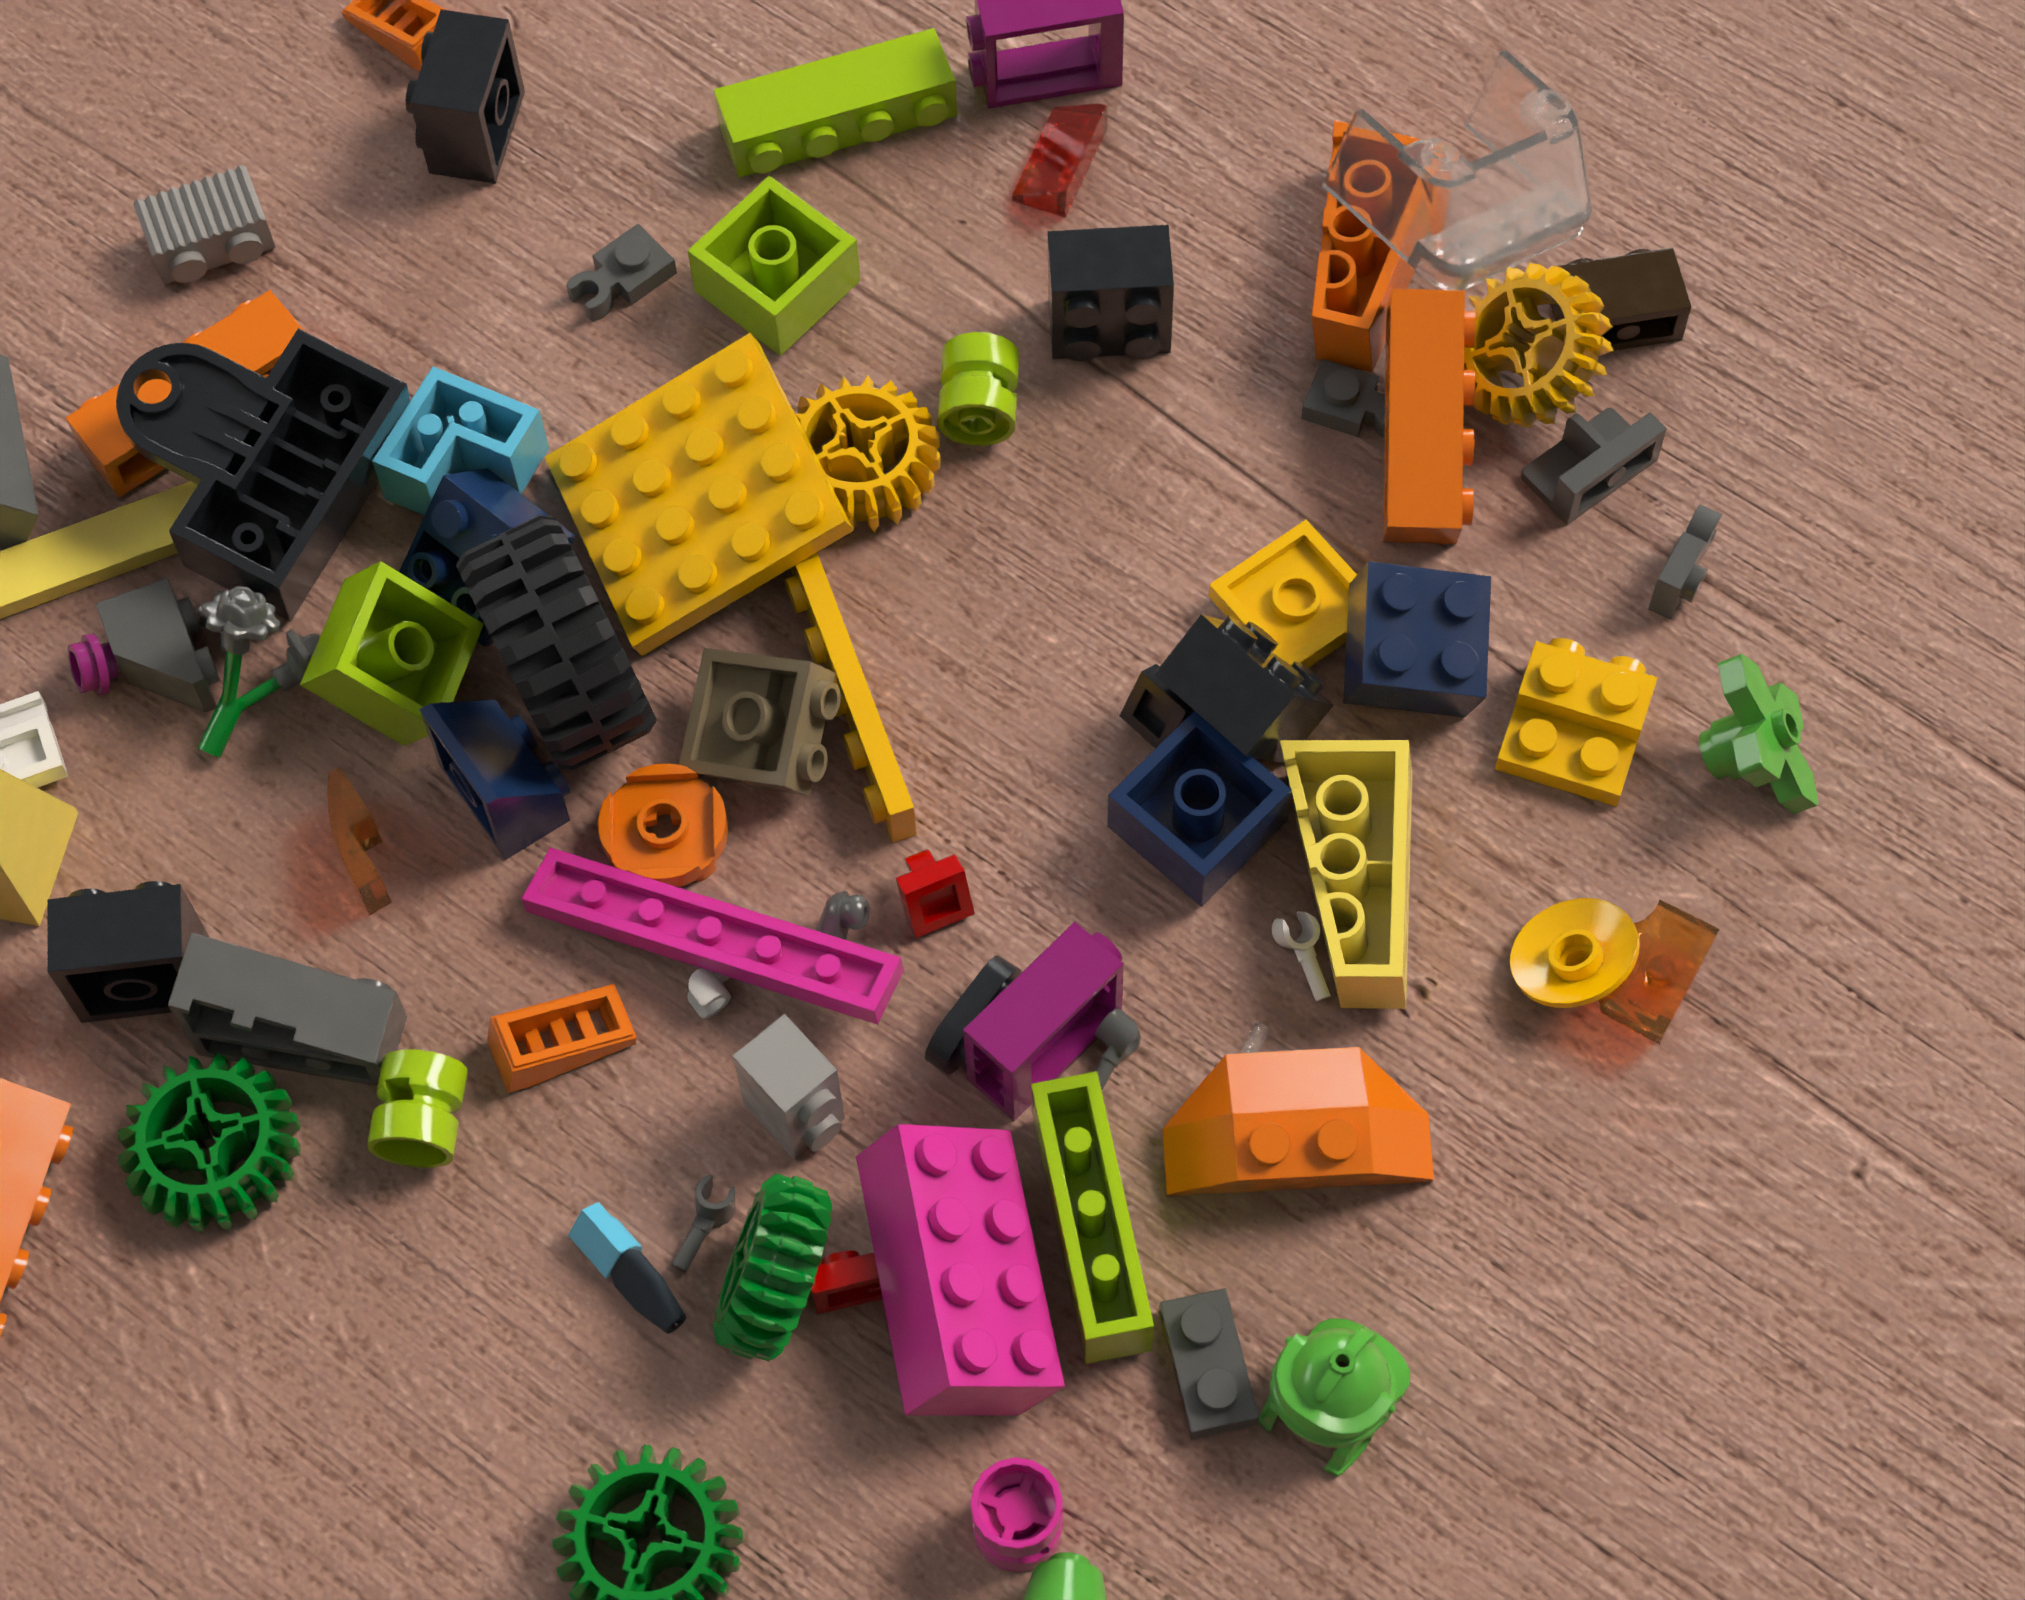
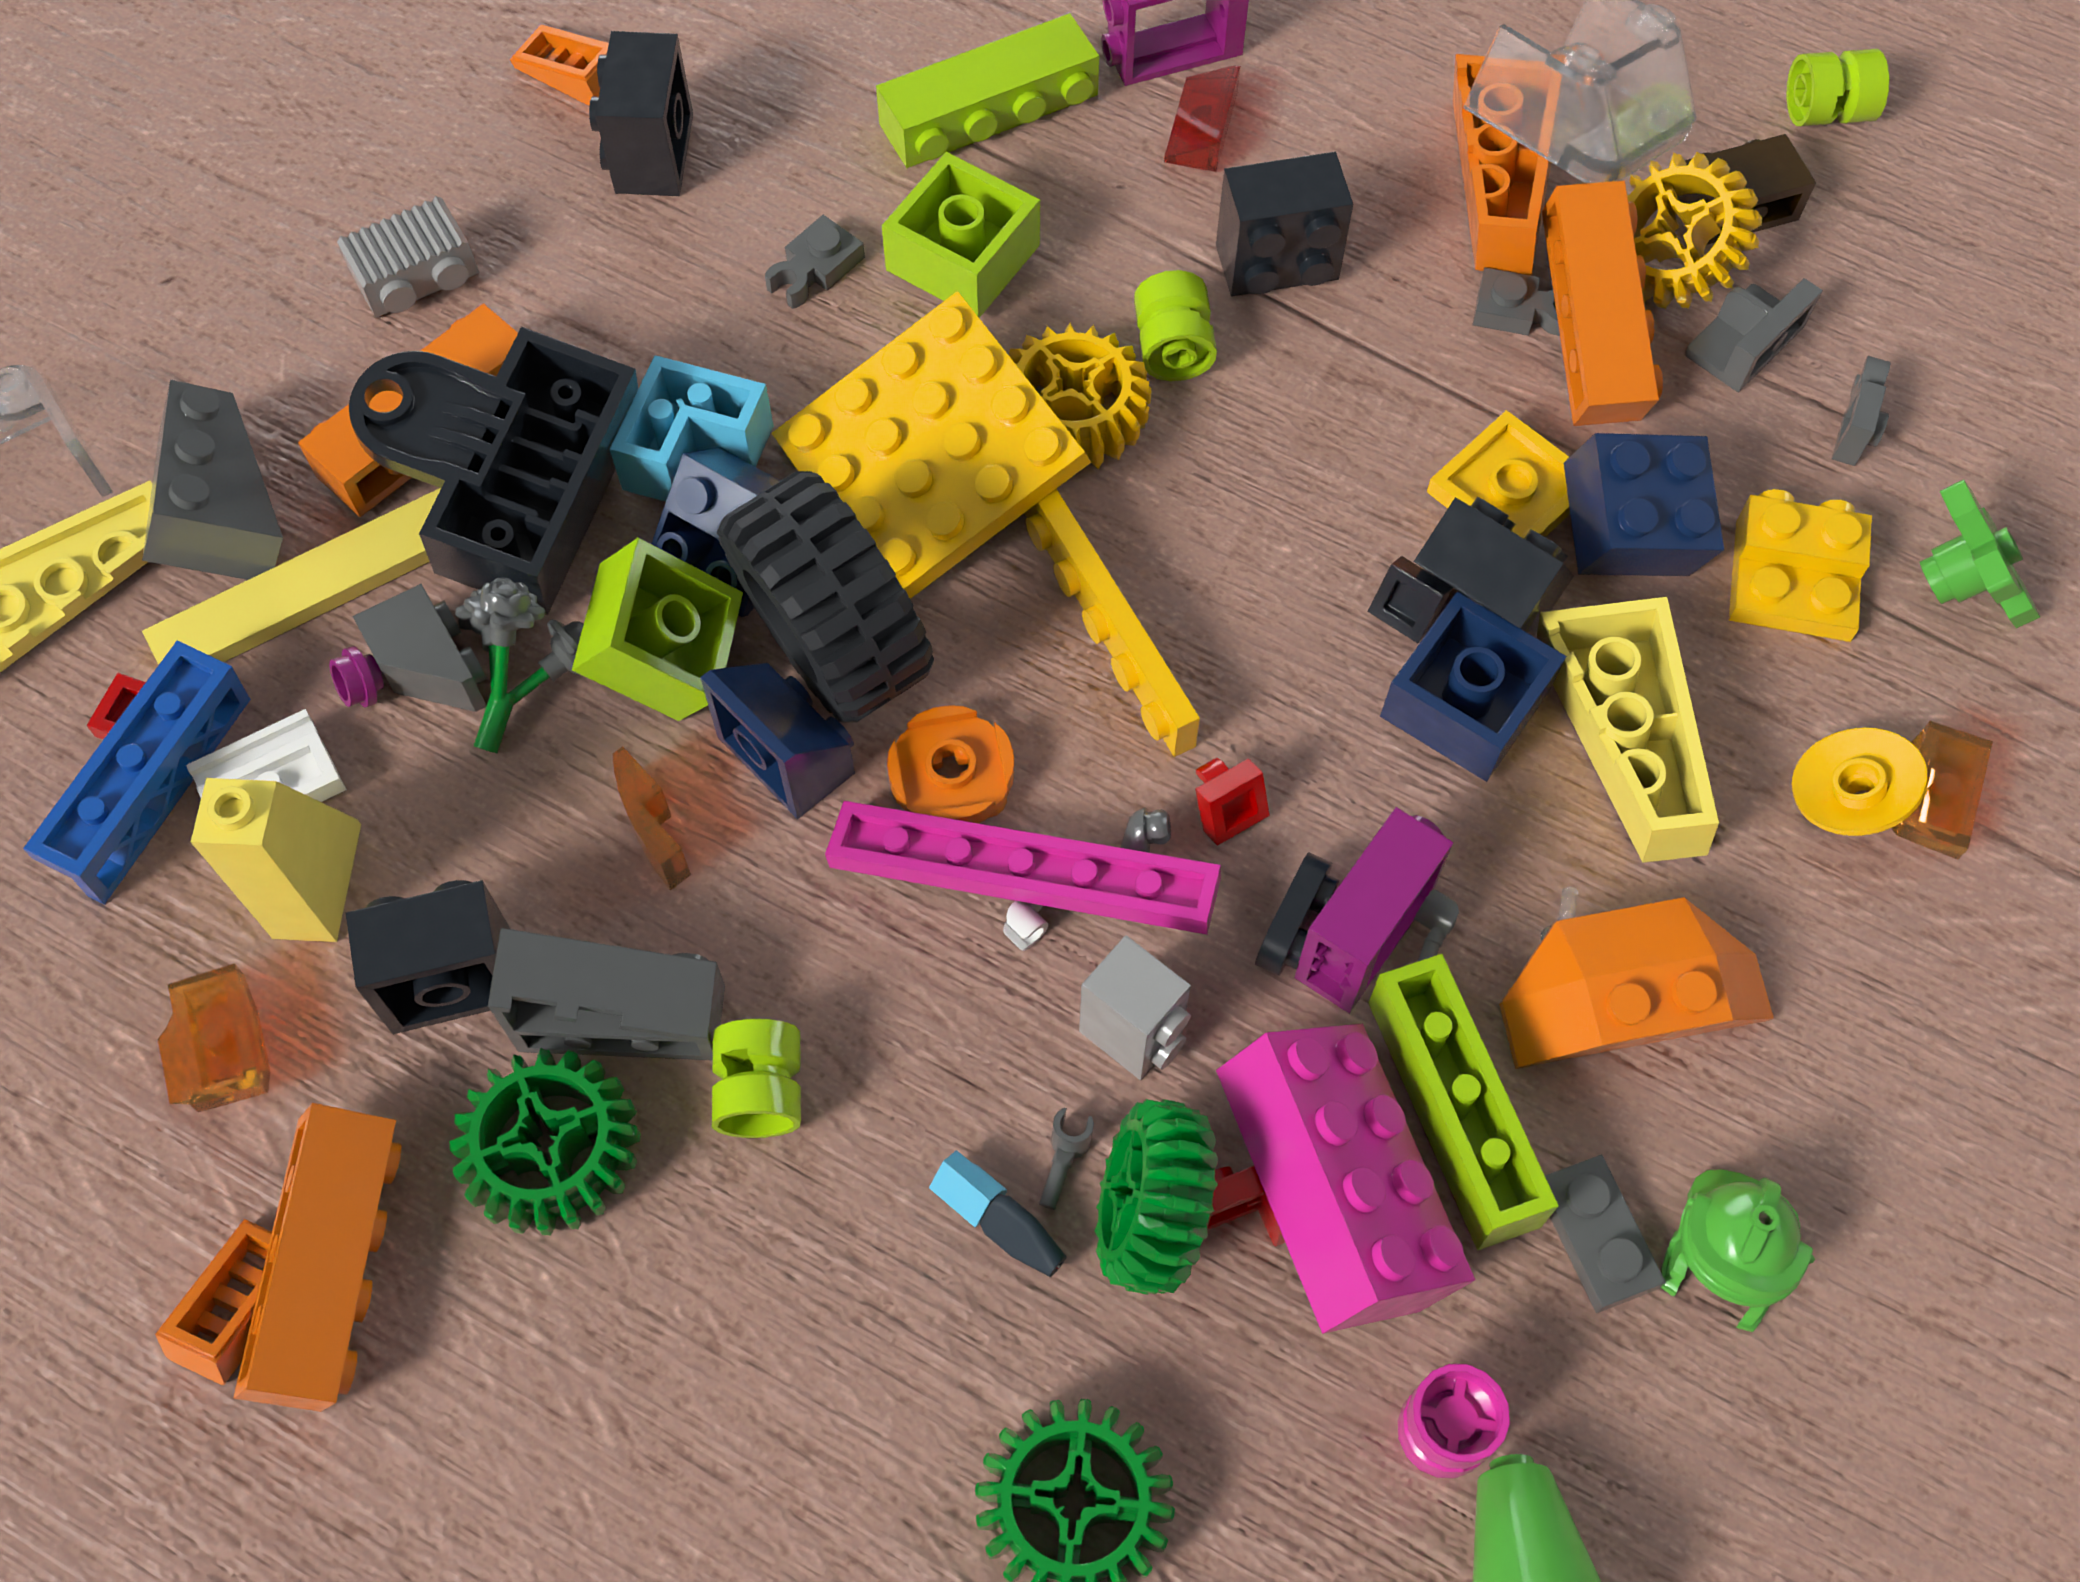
camera: 10 degrees left, 0 degrees up
(544, 1064) = (870, 1017): orange slope -> none
(760, 720) = (1030, 653): dark tan plate -> none
(1304, 950) = (1597, 798): white hand -> none
(1750, 197) = (1836, 87): none -> lime wheel

